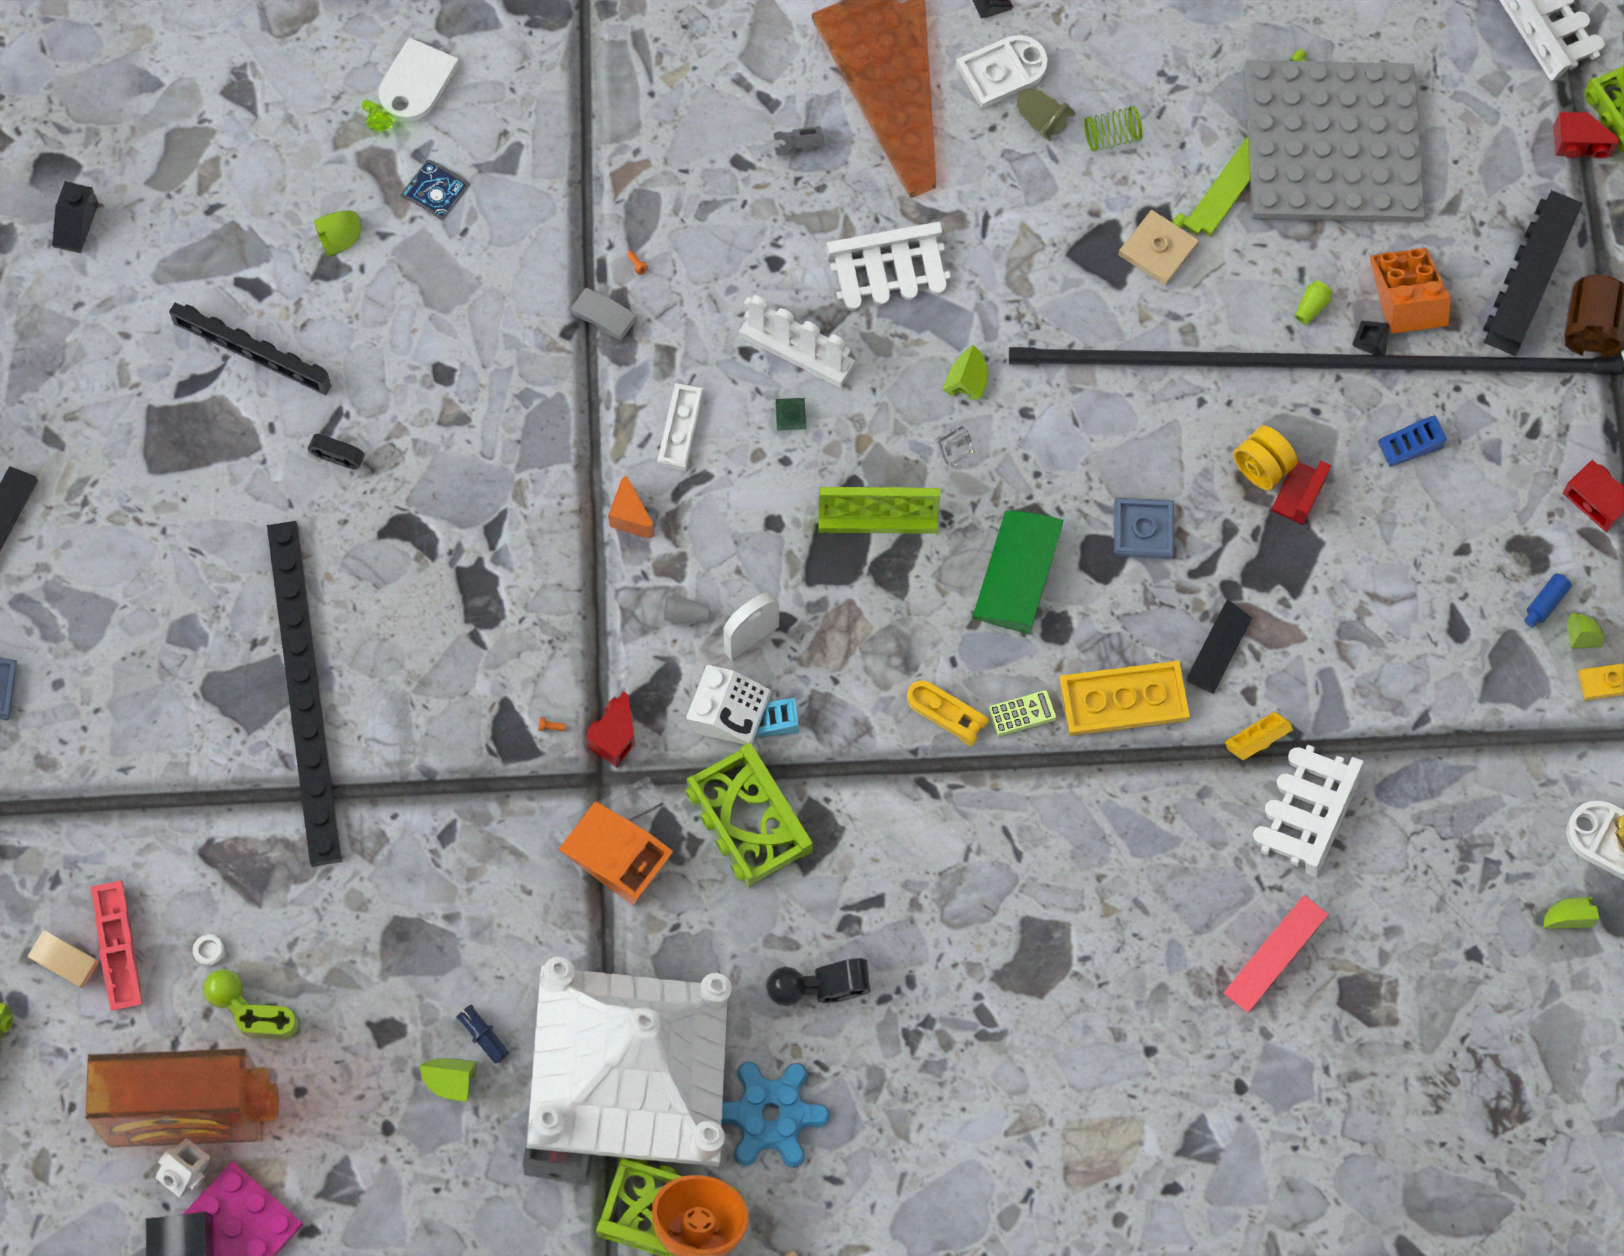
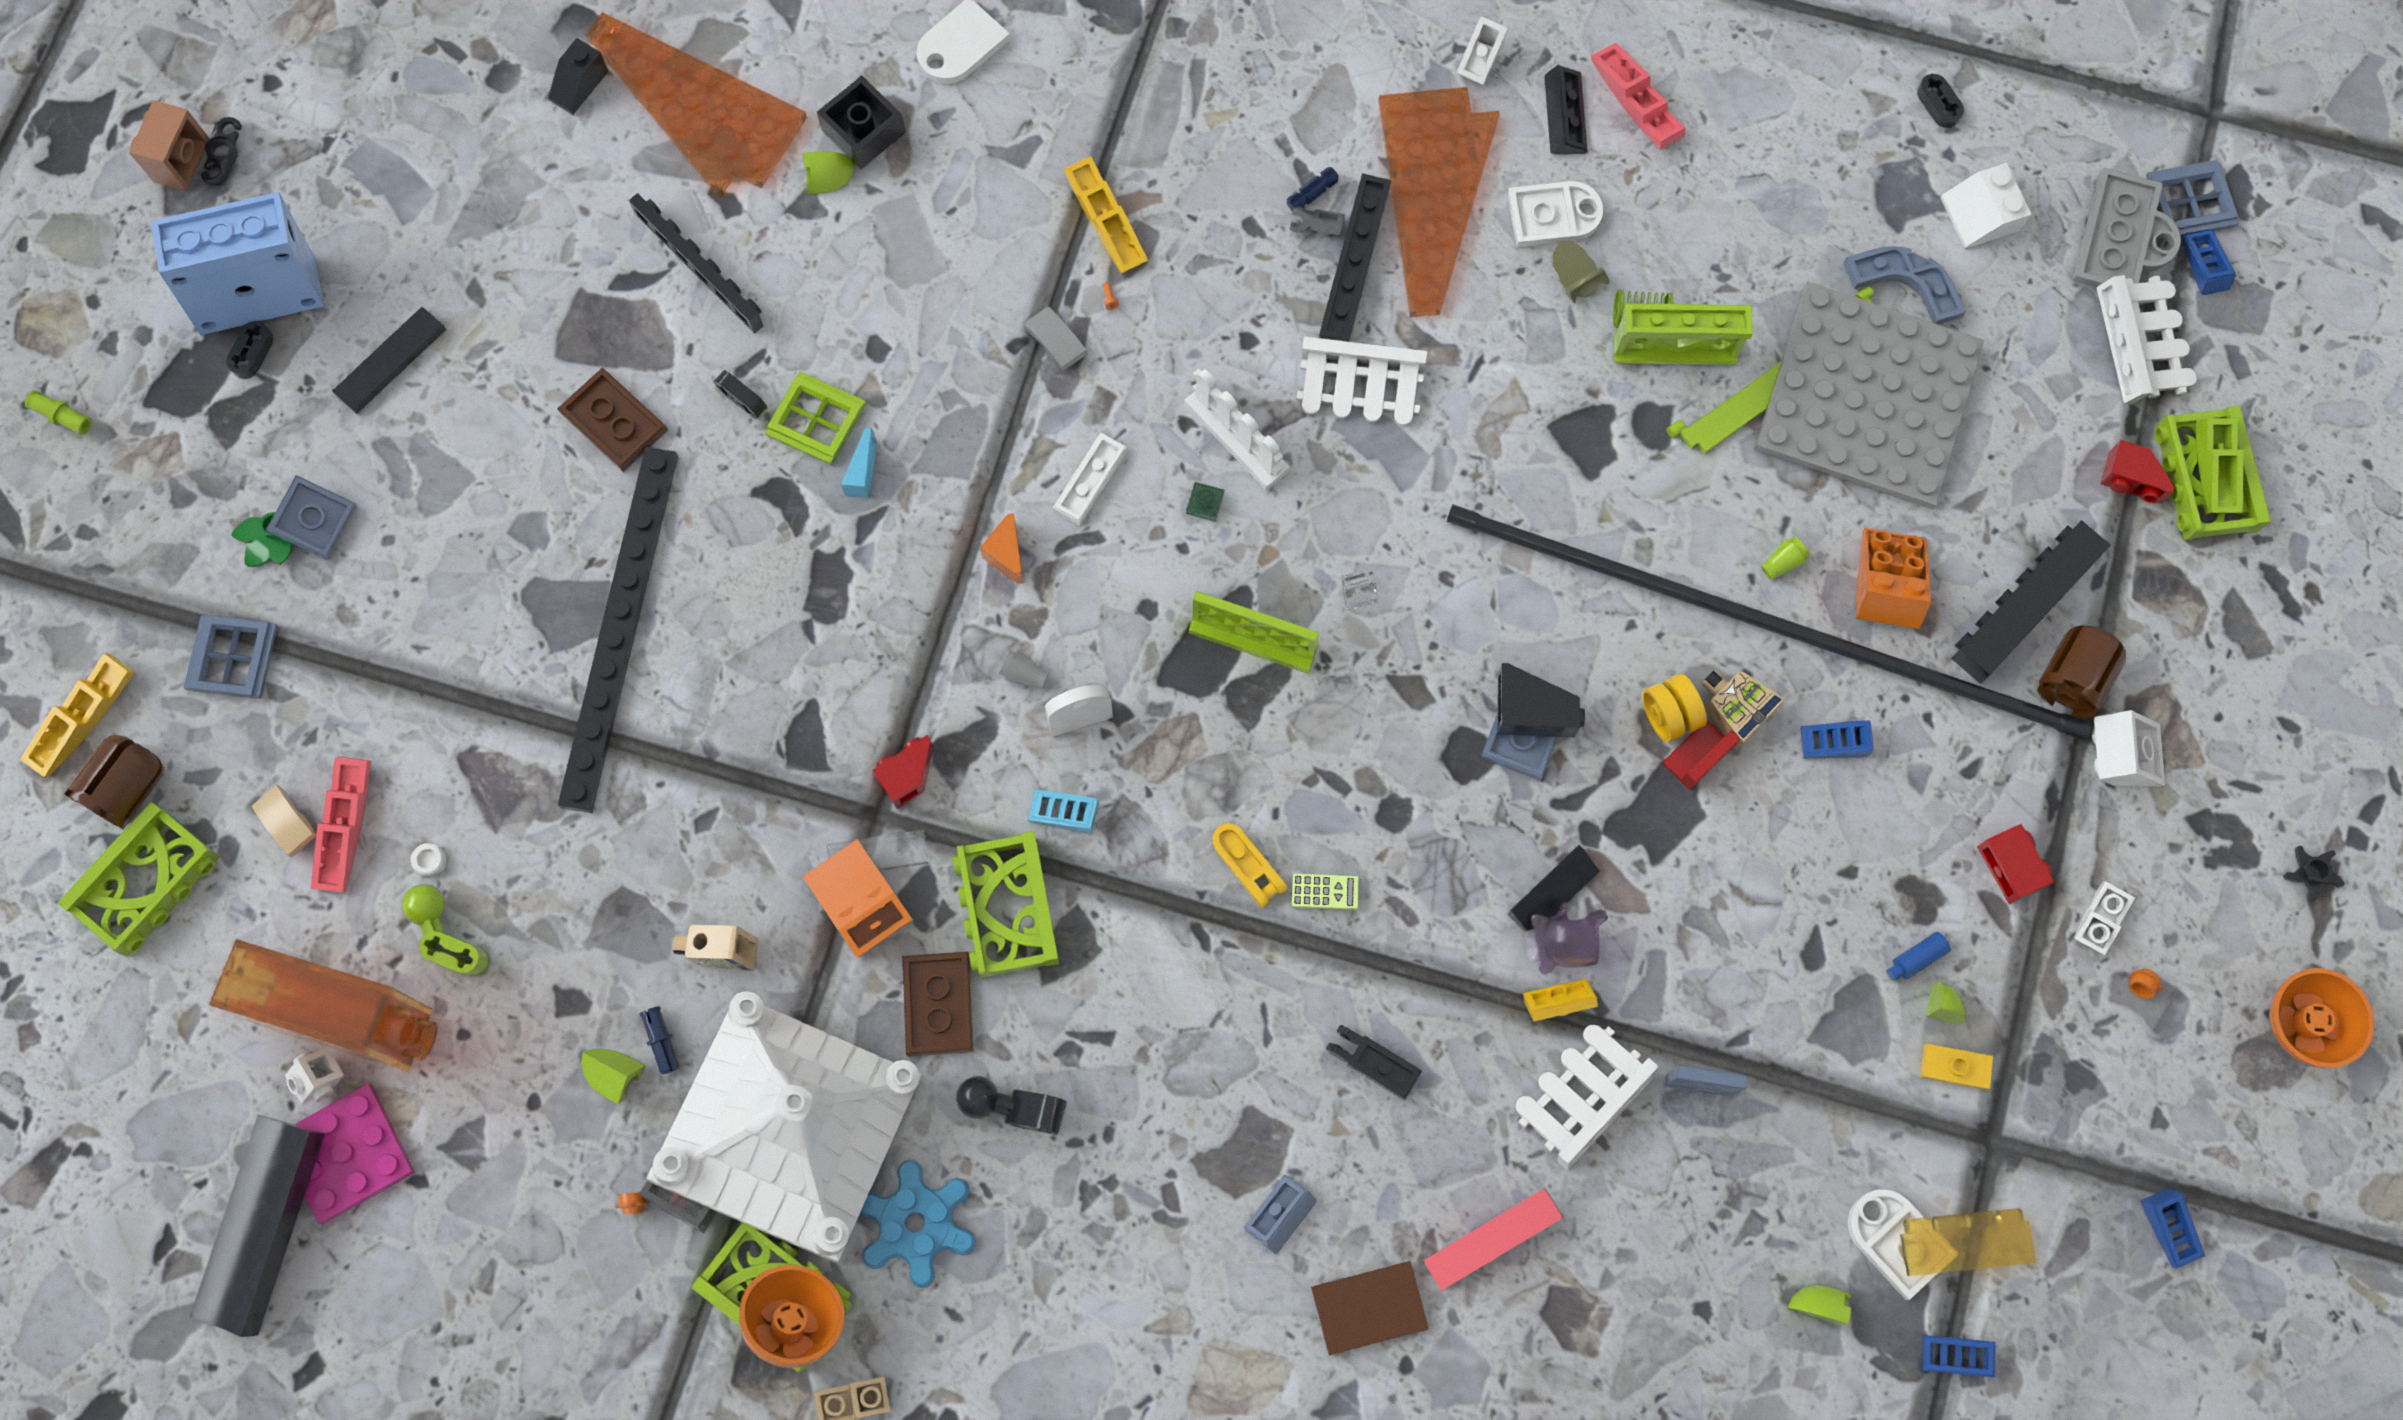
camera: 20 degrees right, 5 degrees up
(204, 212) = (707, 114): none -> clear orange wing
(225, 511) = (612, 419): none -> reddish brown tile
(355, 177) = (861, 122): none -> black brick
(378, 118) = (907, 68): clear neon green plate -> none
(415, 427) = (803, 441): none -> lime piece
(435, 189) = (939, 159): sticker -> none
(473, 492) = (859, 474): none -> medium azure slope
(505, 935) = (718, 946): none -> tan torso
(513, 1180) = (631, 1203): none -> orange plate
(550, 725) = (840, 740): orange piece -> none
(606, 192) = (1105, 215): none -> yellow slope
(718, 921) = (937, 1004): none -> reddish brown tile
(728, 706) = (1027, 785): white slope -> none
(783, 112) = (1313, 188): none -> dark blue axle
(844, 161) = (1355, 258): none -> black plate
(967, 374) = (1399, 519): lime brick -> none
(1018, 570) = (1376, 741): green slope -> none
(1086, 997) = (1280, 1214): none -> sand blue slope
(1120, 841) = (1377, 1063): none -> black hinge
(1124, 698) = (1435, 912): yellow plate -> none
(1146, 494) = (1535, 706): none -> black slope
(1156, 137) = (1682, 334): none -> lime fence
(1158, 247) = (1645, 449): tan plate -> none
(1191, 1048) = (1369, 1308): none -> reddish brown tile
(1244, 683) = (1565, 941): none -> clear purple piece
(1319, 437) = (1739, 704): none -> torso
(1324, 21) = (1922, 274): none -> sand blue plate
(1372, 337) = (1834, 615): black slope -> none
(1407, 759) = (1706, 1080): none -> sand blue tile

